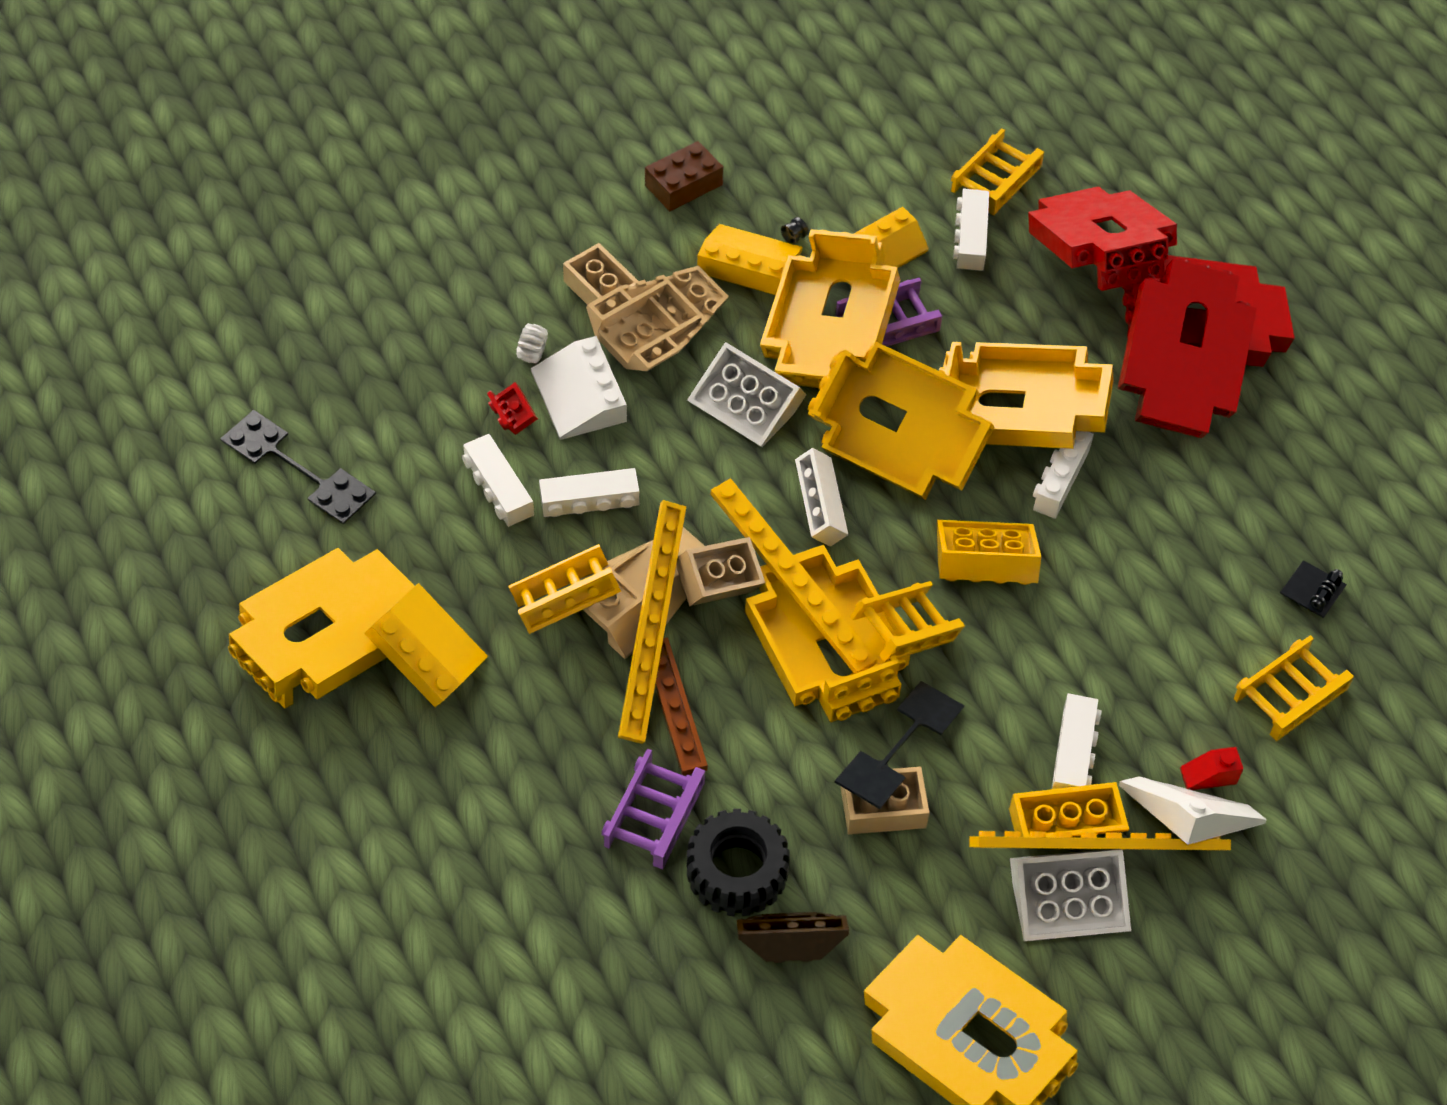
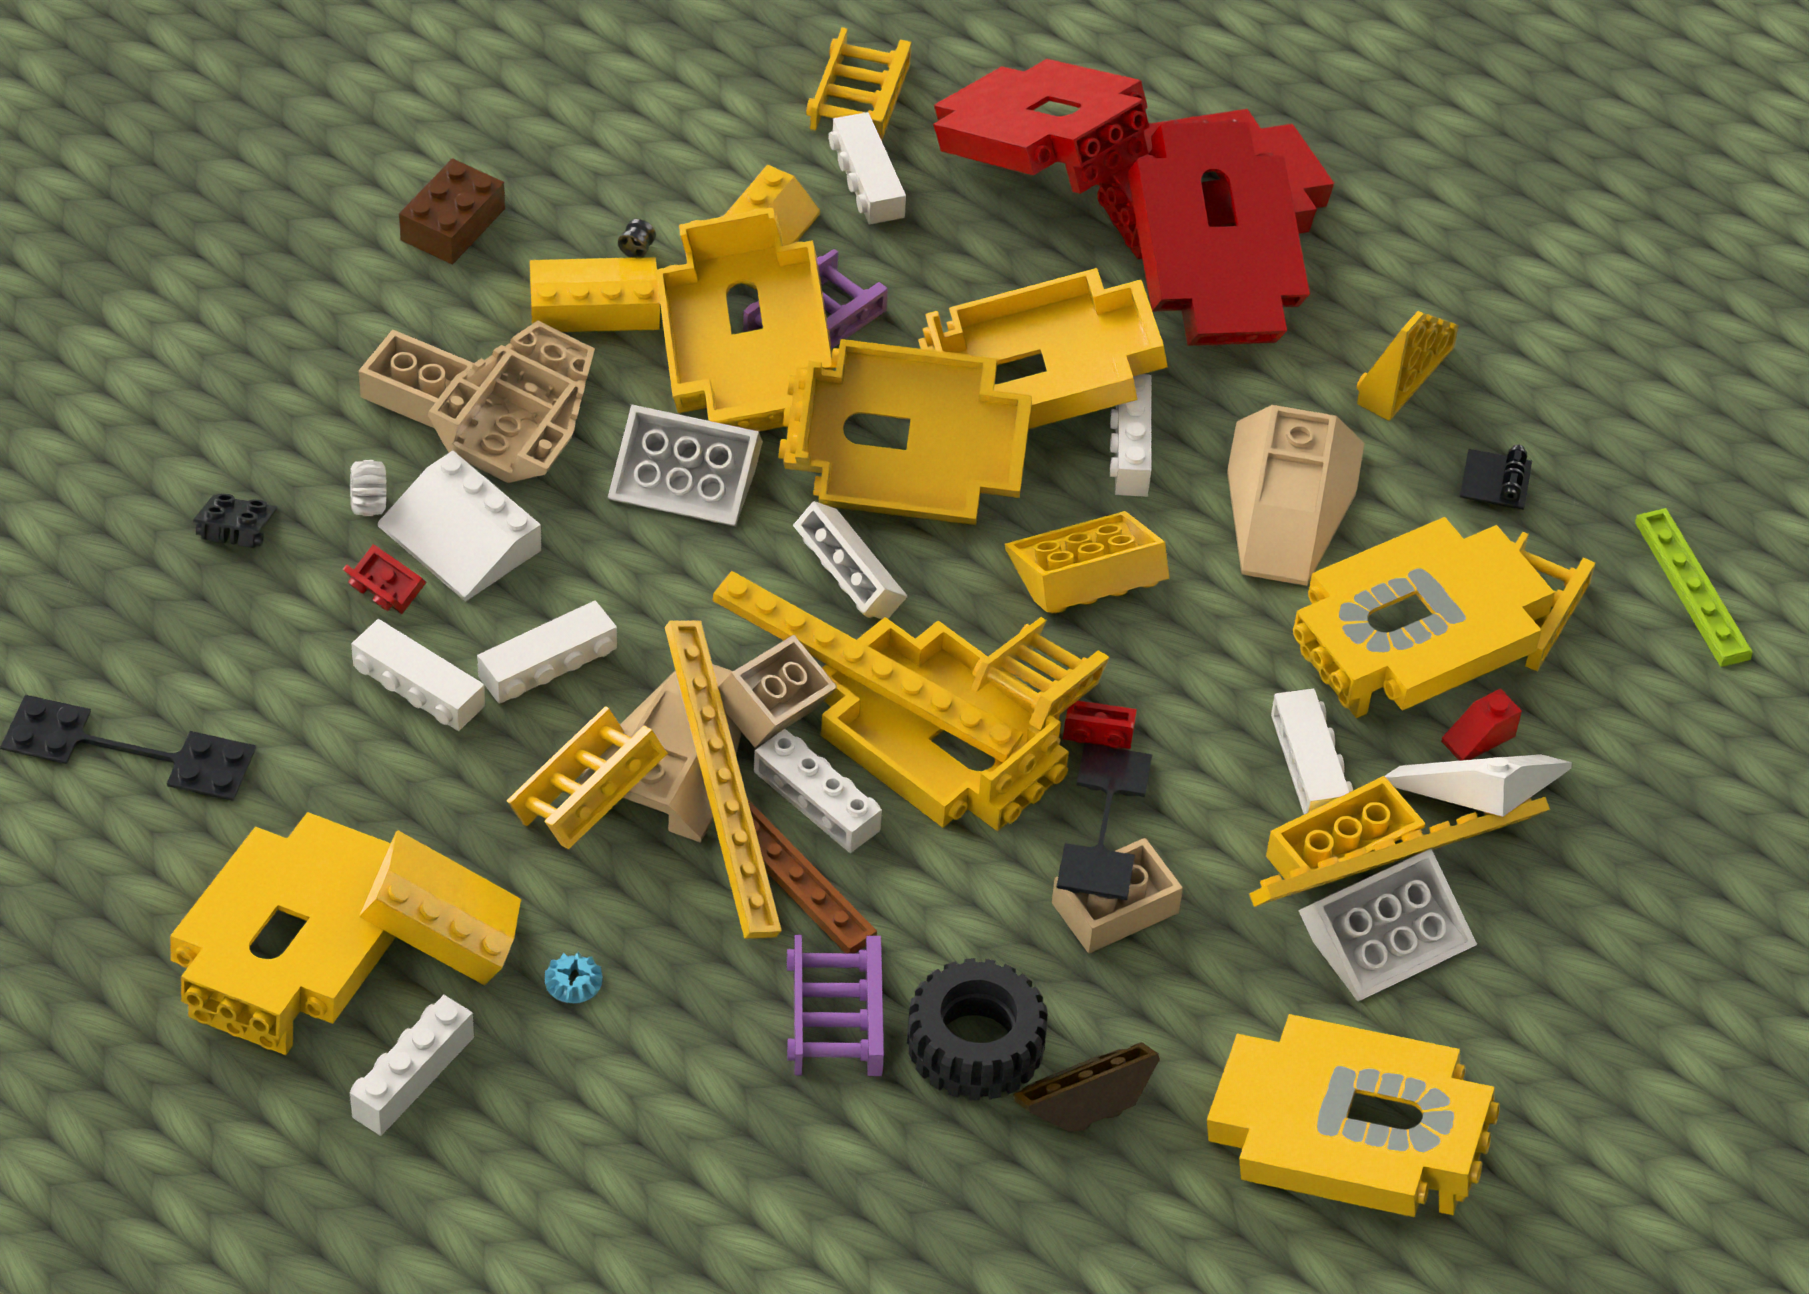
camera: 25 degrees left, 5 degrees down
(354, 746) = (411, 1064): none -> white brick
(440, 337) = (241, 516): none -> black hinge
(496, 732) = (585, 985): none -> medium azure gear
(719, 650) = (818, 790): none -> white brick
(937, 671) = (1100, 724): none -> red bracket
(1157, 548) = (1290, 489): none -> tan wedge
(1246, 665) = (1480, 620): none -> yellow panel
(1284, 483) = (1406, 364): none -> yellow slope
(1424, 719) = (1693, 587): none -> lime tile

